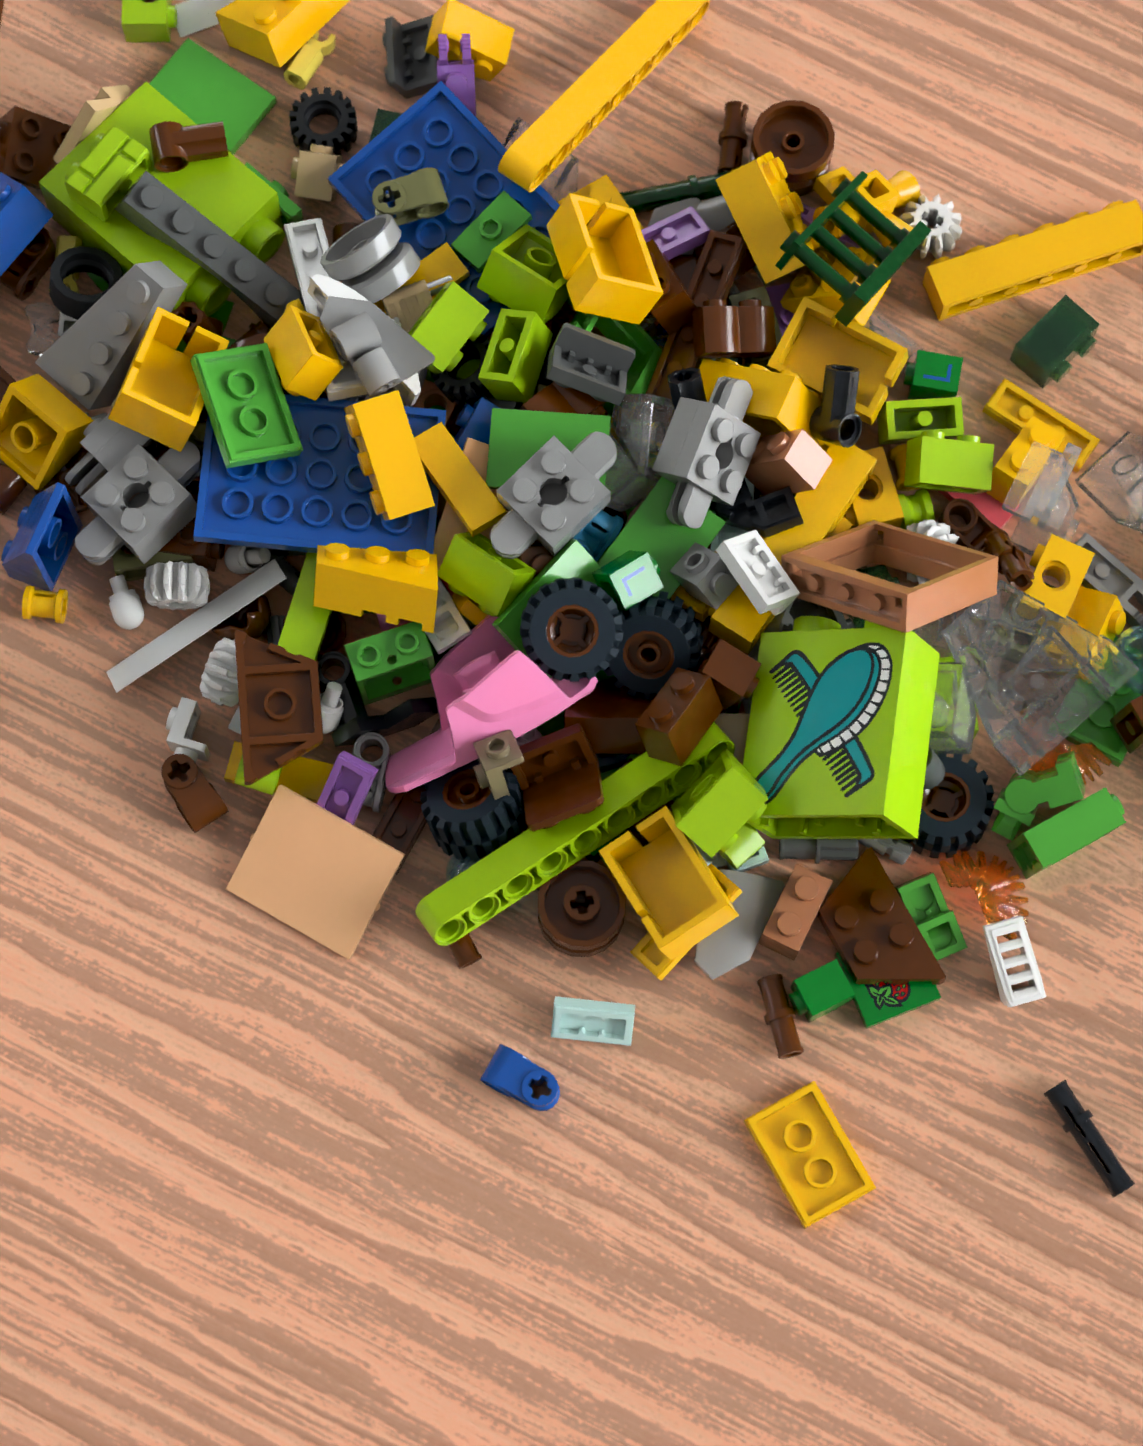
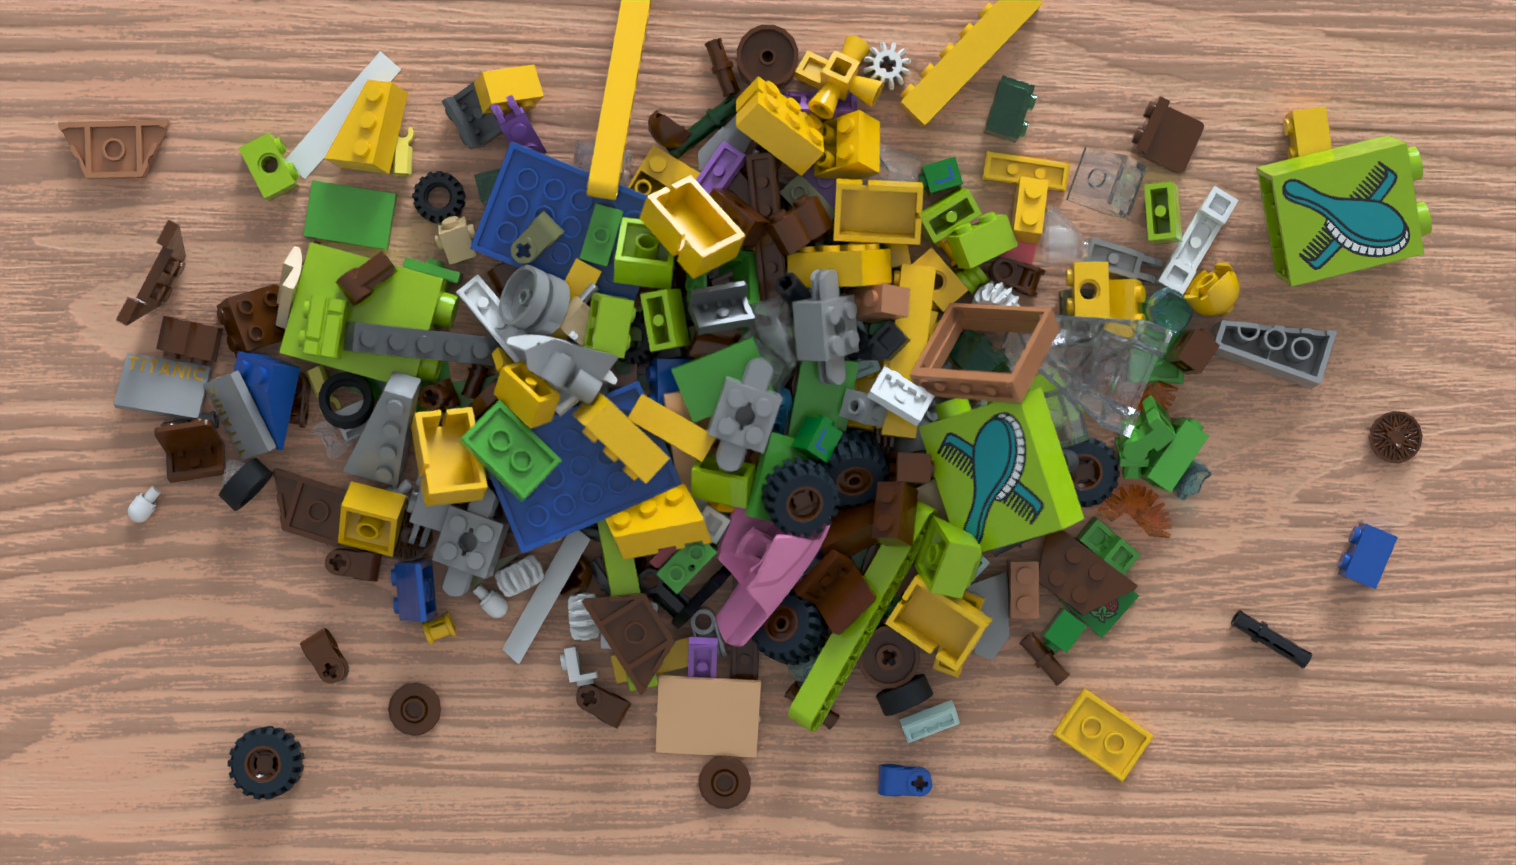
camera: 25 degrees left, 15 degrees up
(292, 969) = (724, 782): none -> reddish brown wheel
(331, 707) = (663, 608): white cylinder -> none
(494, 756) = (793, 600): dark tan bracket -> none
(577, 965) = (906, 696): none -> black tyre
(632, 166) = (666, 131): none -> reddish brown hair
(836, 417) = (896, 255): black piece -> none
(869, 277) = (878, 123): dark green fence -> none
(1011, 559) = (1053, 292): reddish brown pin -> none
(1031, 973) = (1187, 565): white slope -> none
(1040, 482) = (1052, 232): clear panel -> none
(1075, 879) = (1191, 480): none -> clear light blue hair

